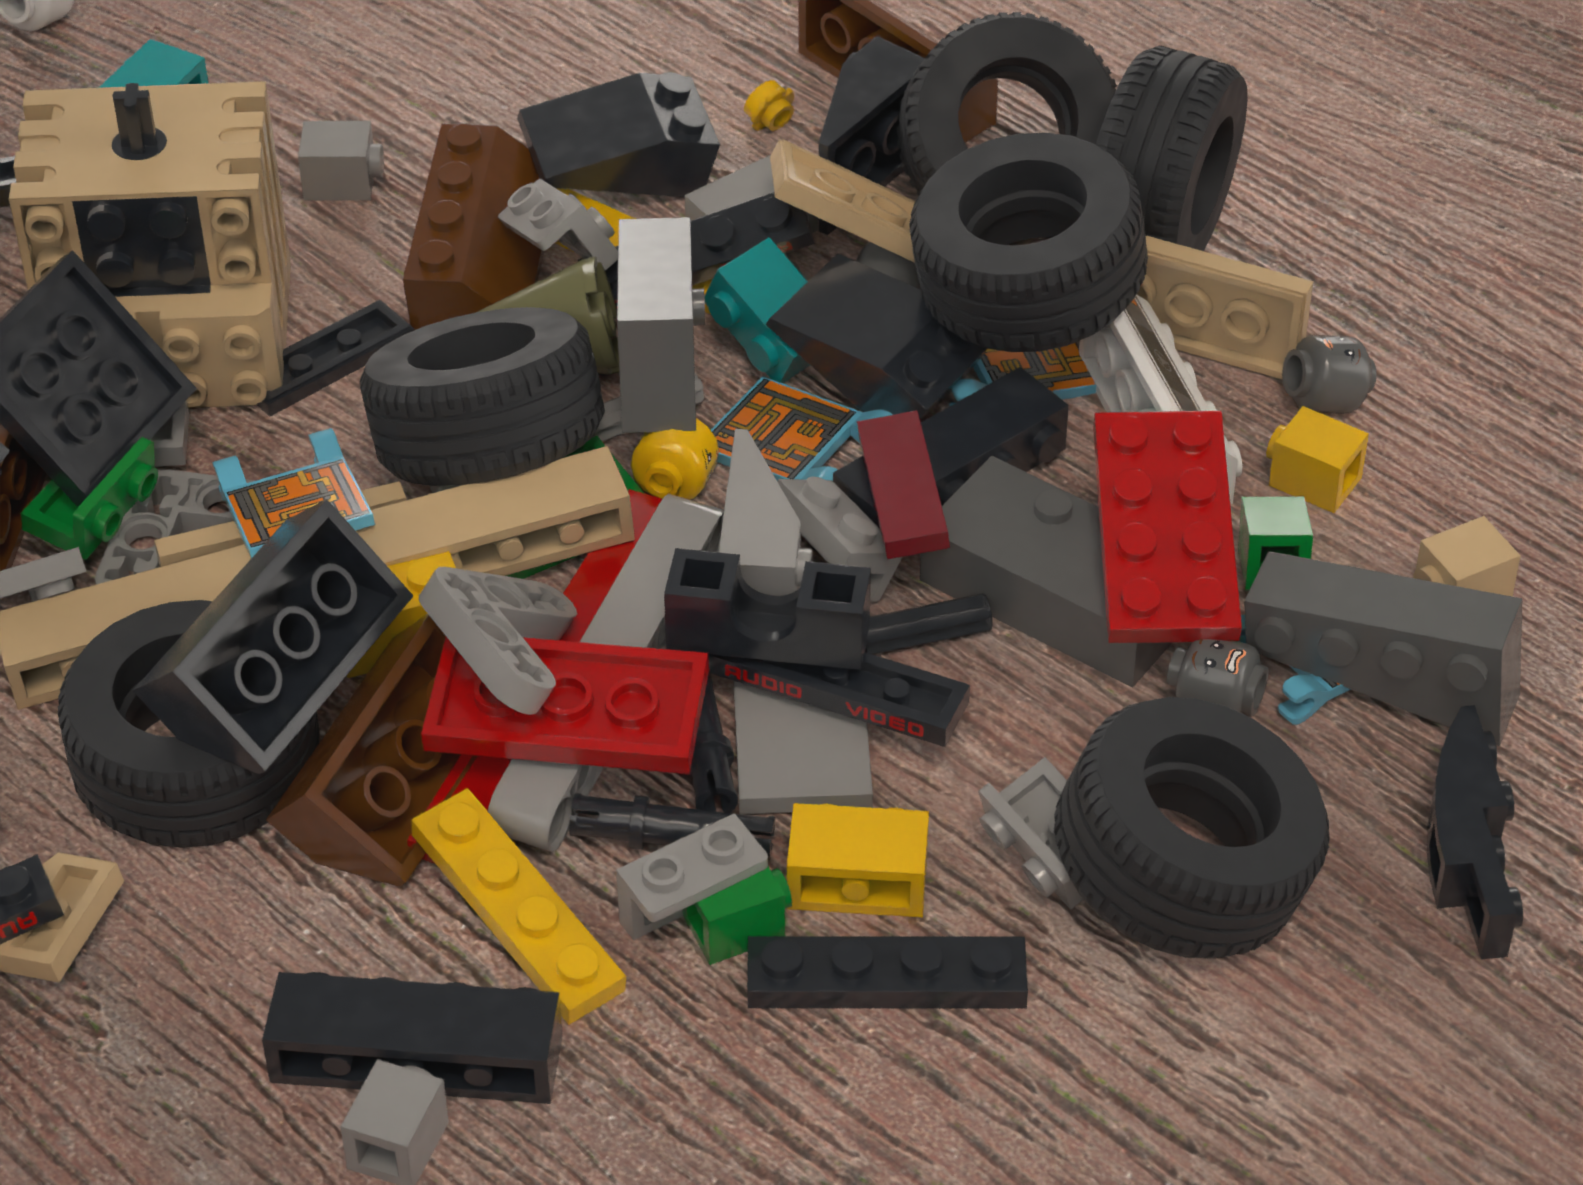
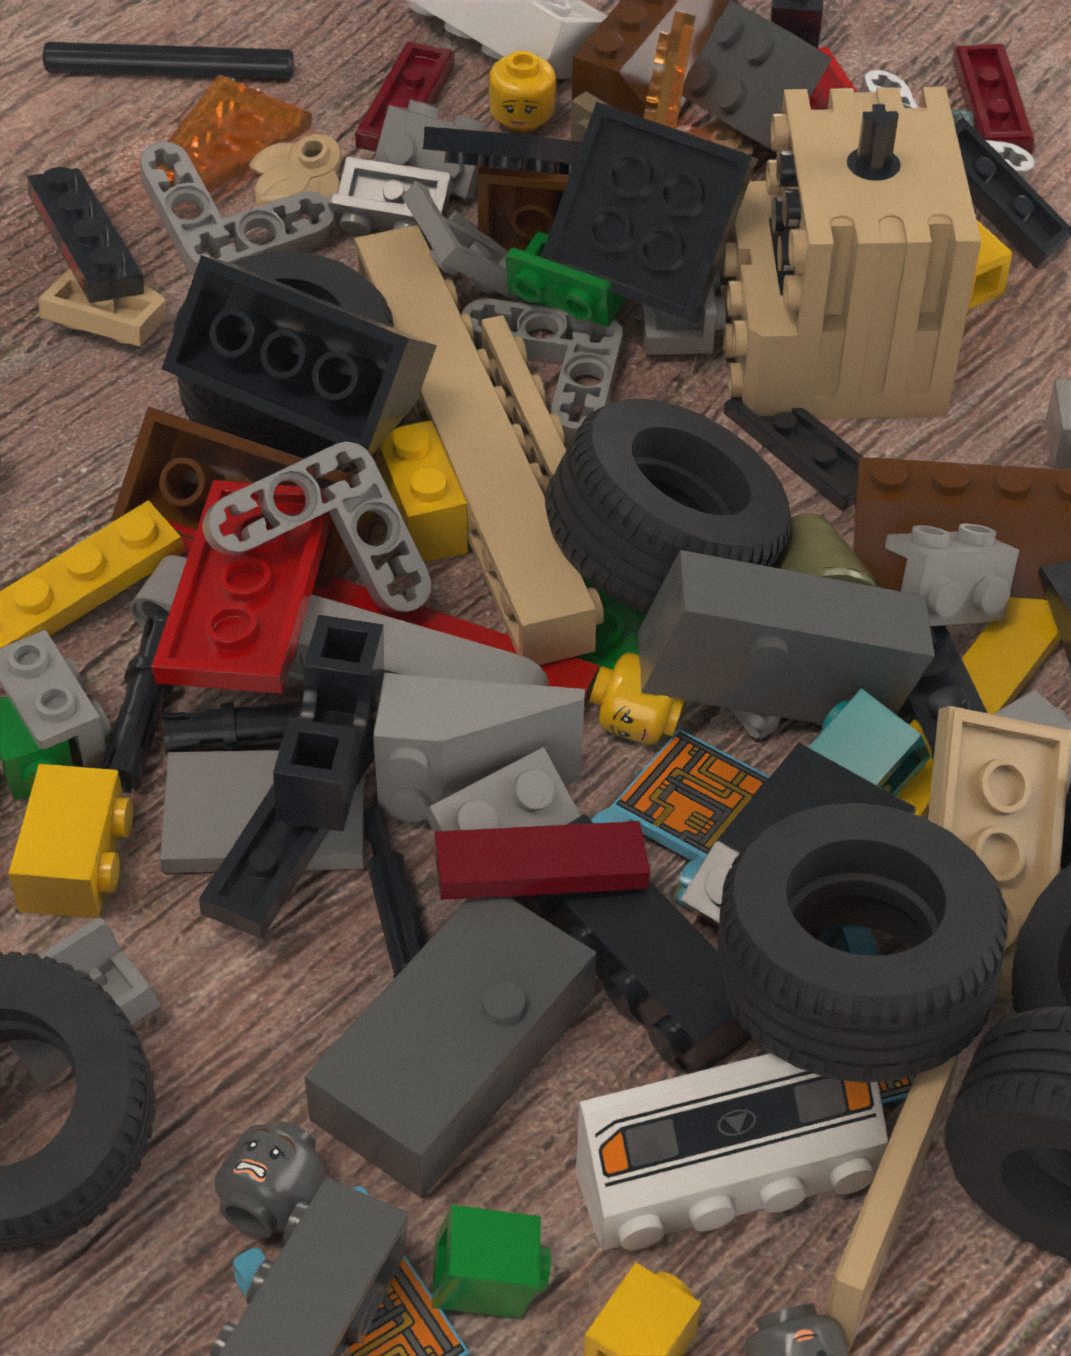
camera: 90 degrees right, 5 degrees up
(268, 502) = (532, 393): flag -> none
(1166, 527) = (433, 1092): red plate -> none

